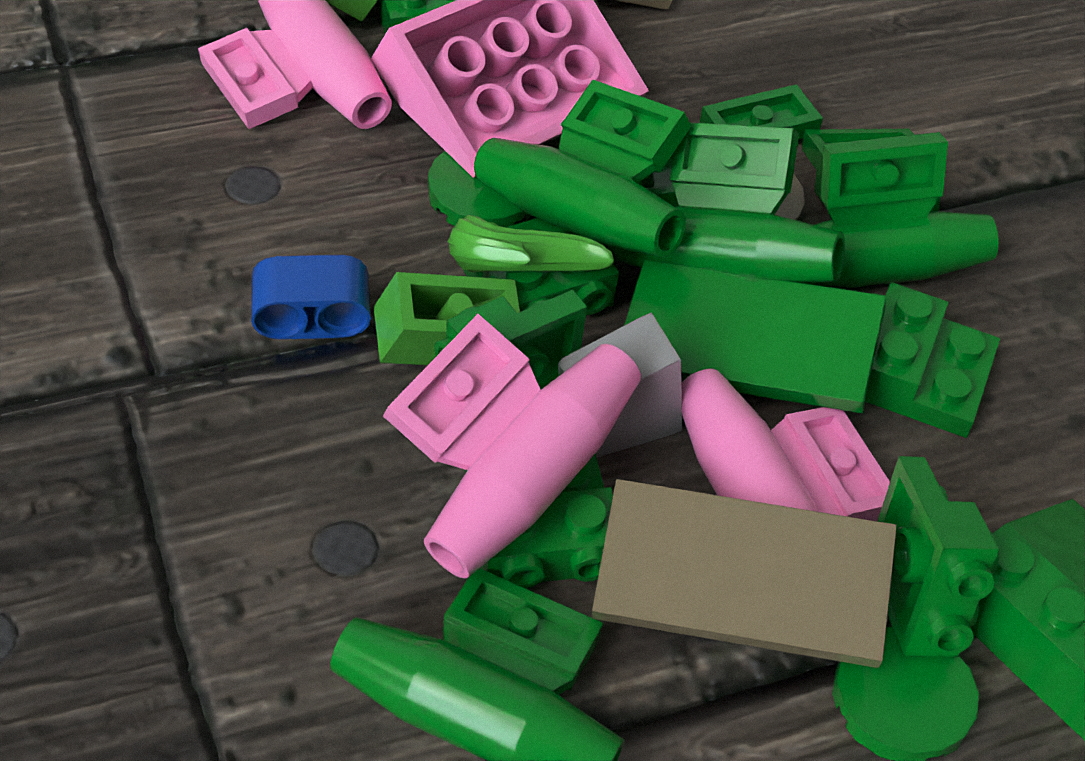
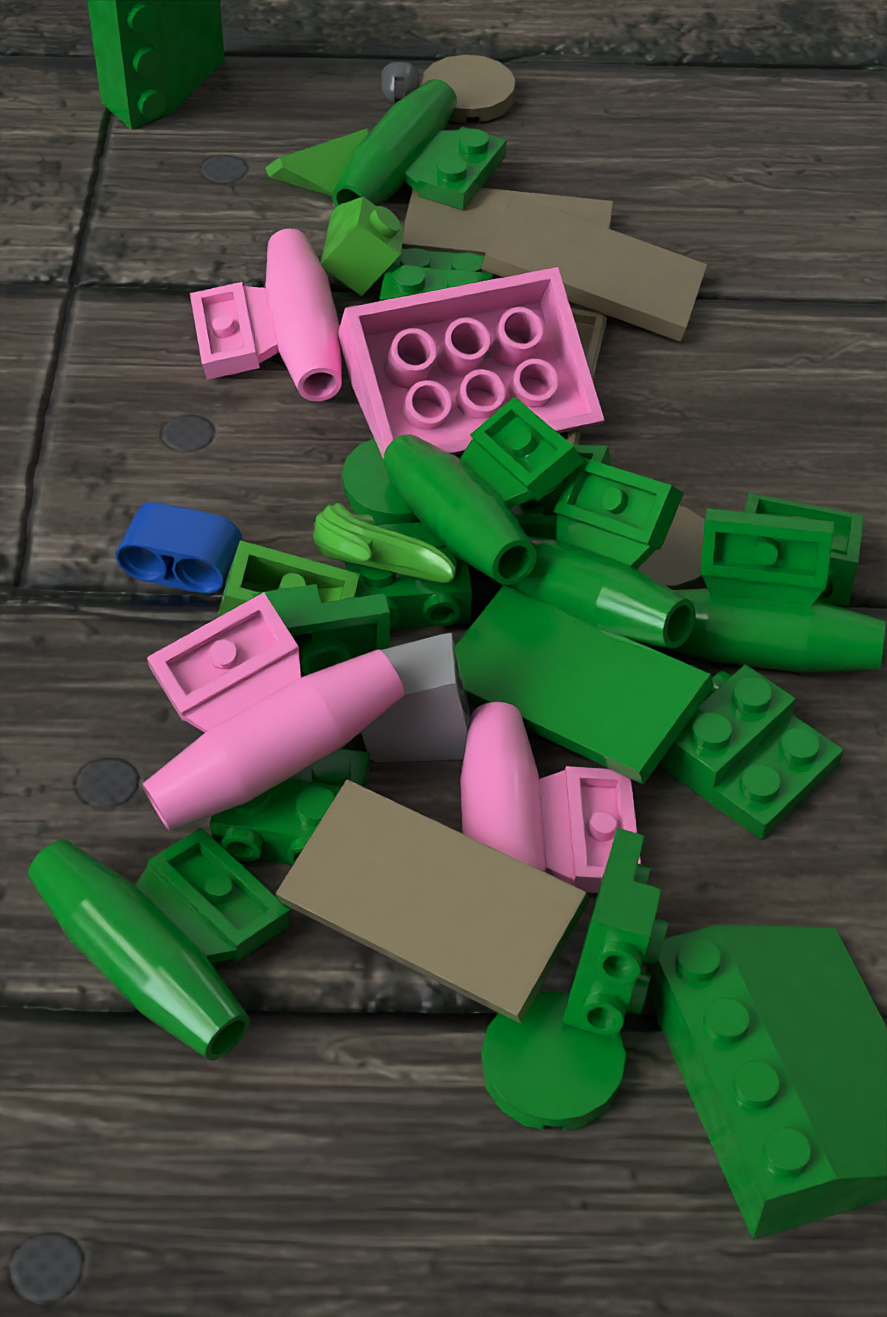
camera: 25 degrees right, 0 degrees up
(774, 108) = (713, 472): green plate -> none

